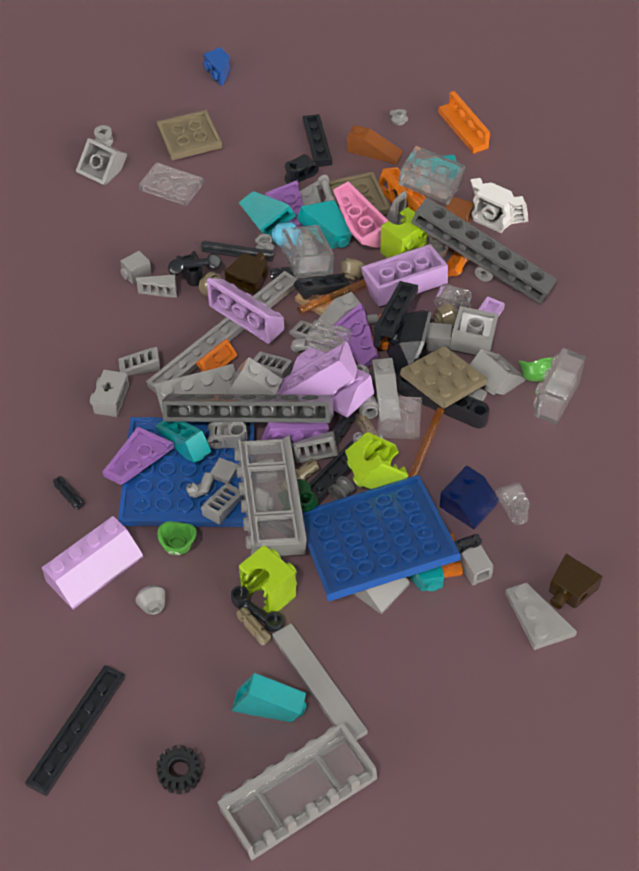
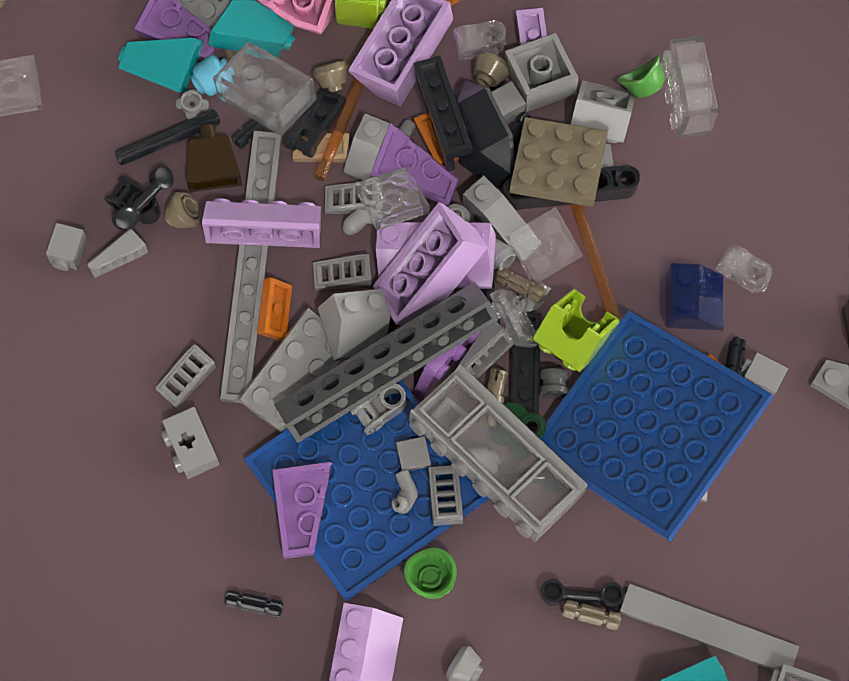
camera: 40 degrees left, 20 degrees up
(186, 438) = (340, 447): teal slope -> none
(270, 574) = (578, 546): lime piece -> none
(343, 432) = (518, 326): none -> clear plate

